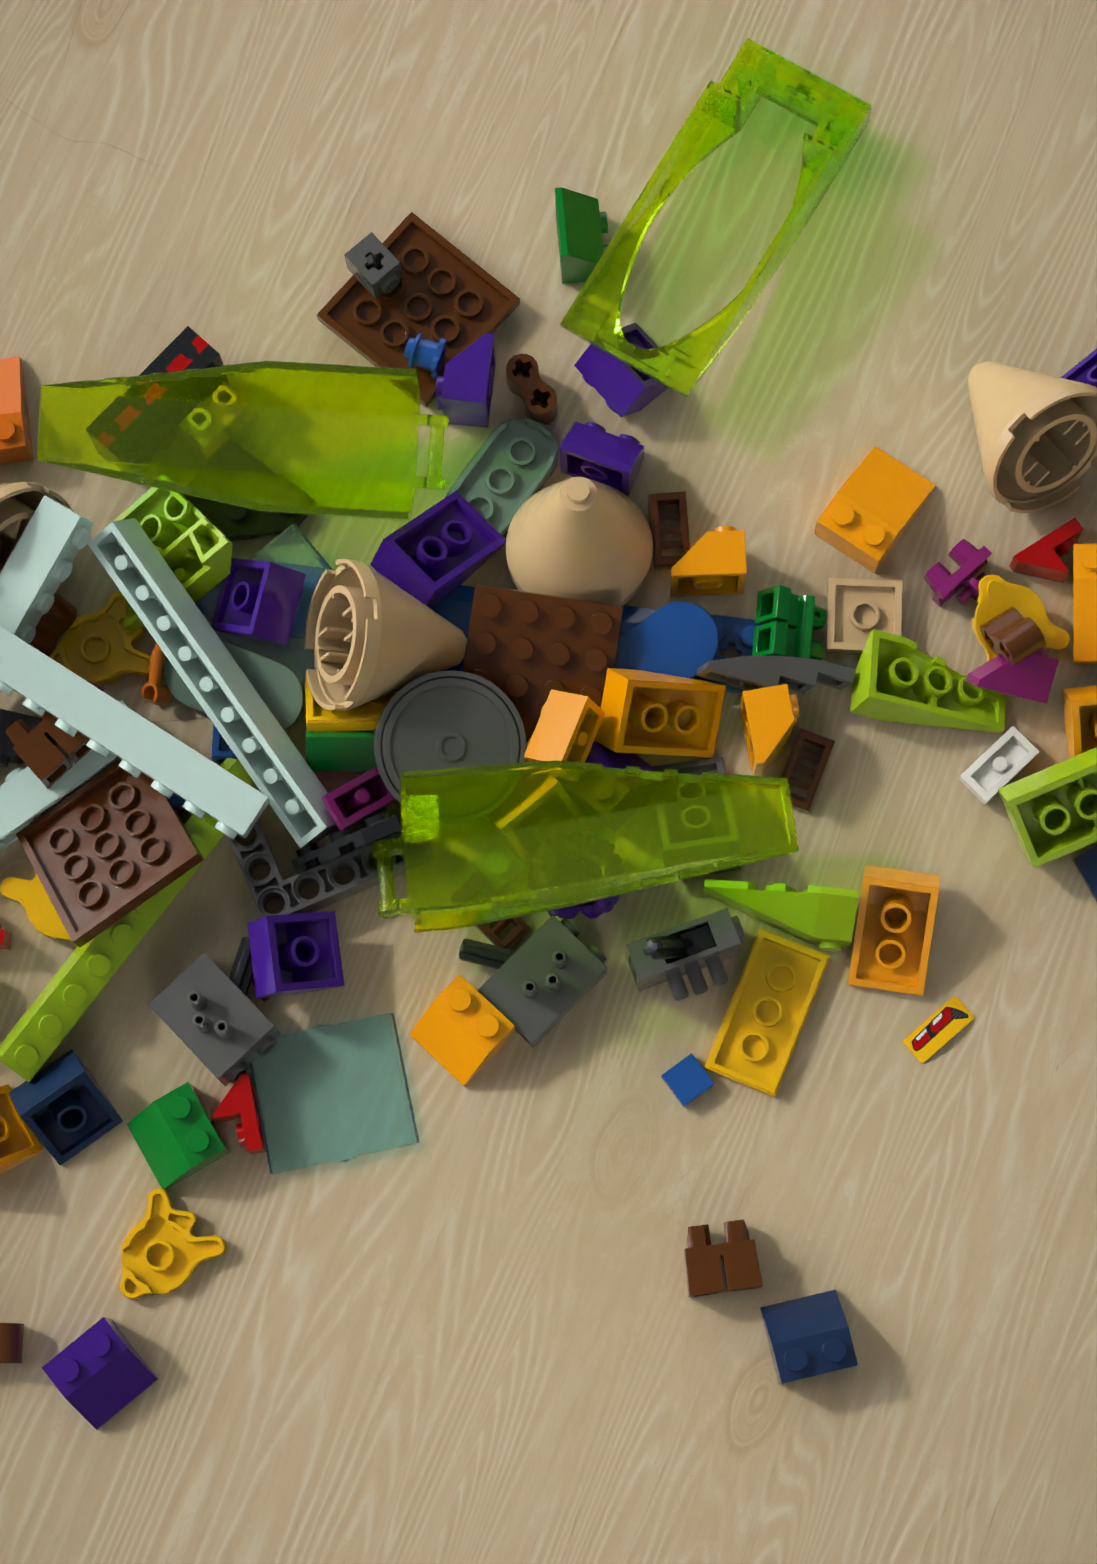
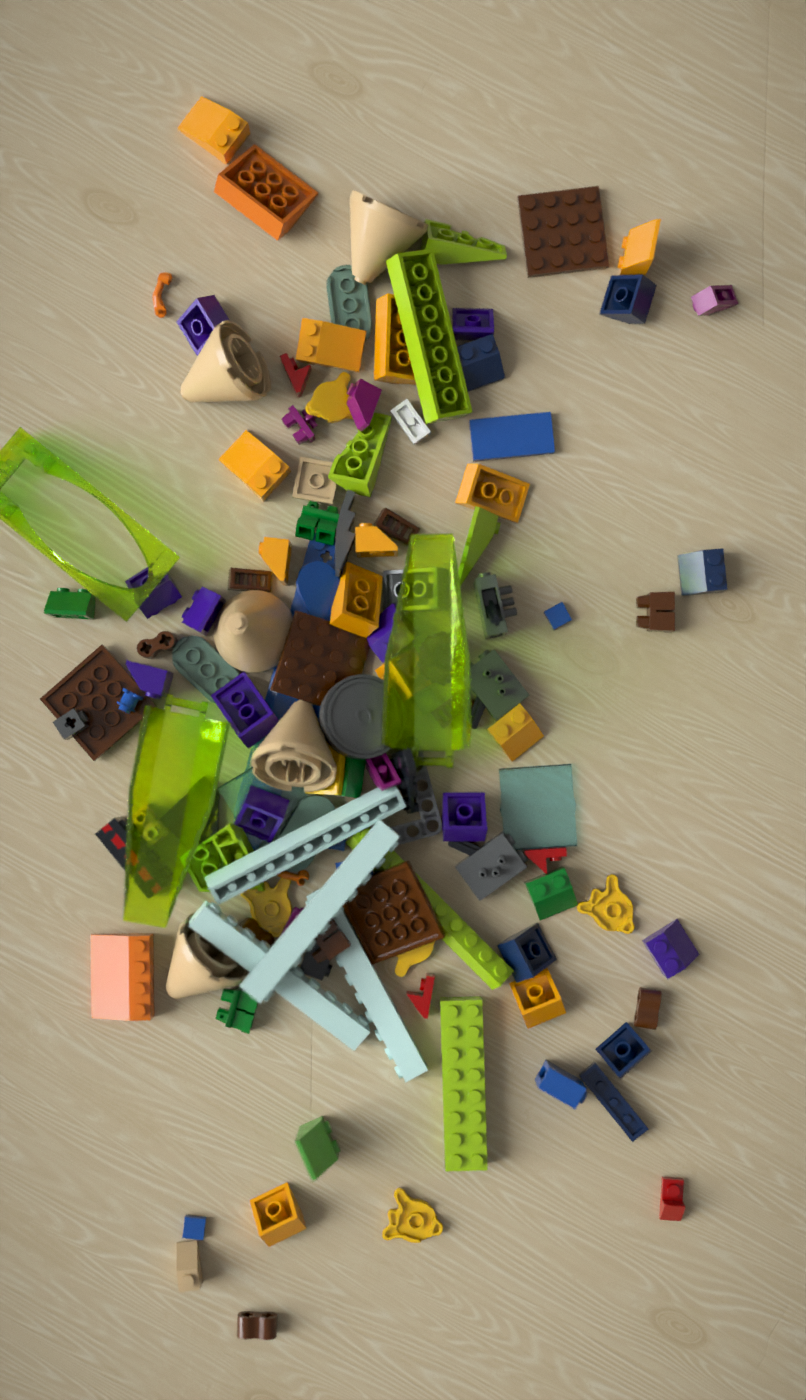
camera: 85 degrees left, 10 degrees up
(565, 728) = (364, 653): light orange brick -> none
(767, 1012) = (527, 568): yellow tile -> none
(938, 1029) = (548, 478): yellow sticker -> none
(1004, 951) = (511, 436): none -> blue tile
(1012, 636) = (344, 400): reddish brown axle -> none

